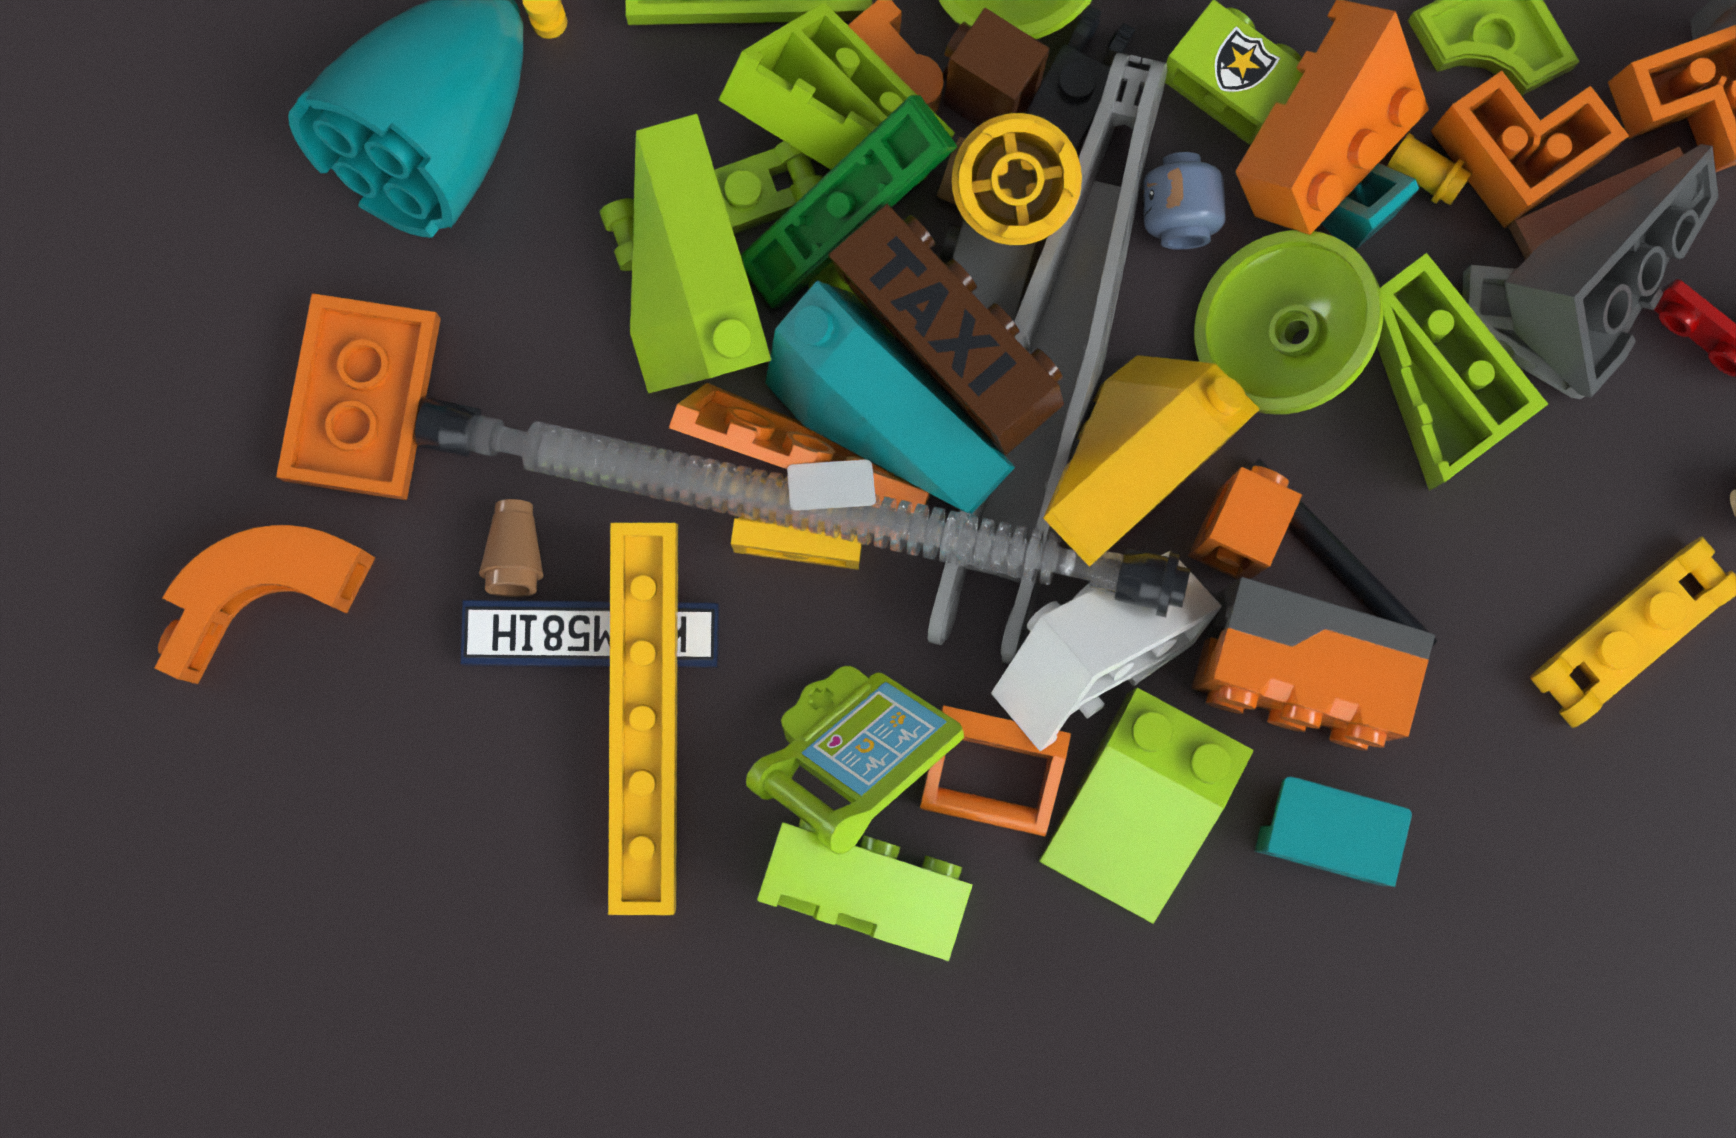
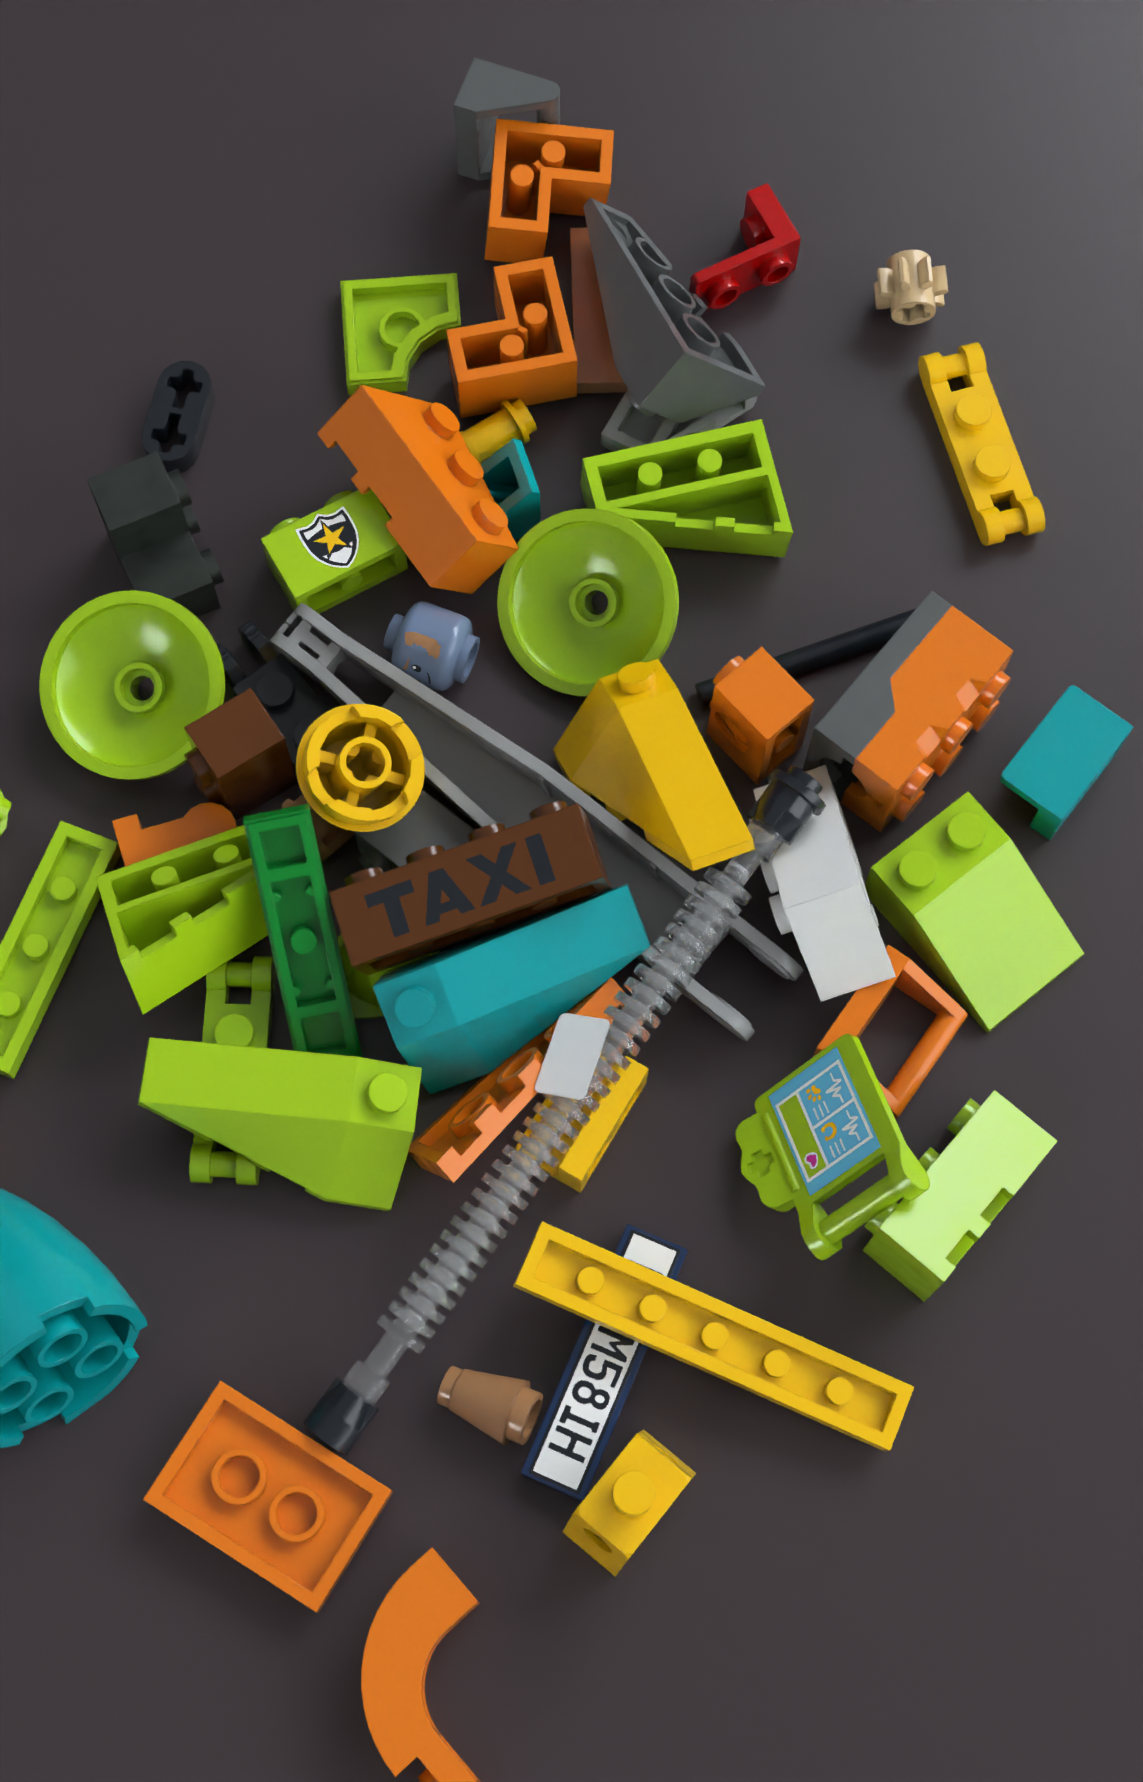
camera: 65 degrees left, 10 degrees down
(477, 703) = (628, 1501): none -> yellow torso

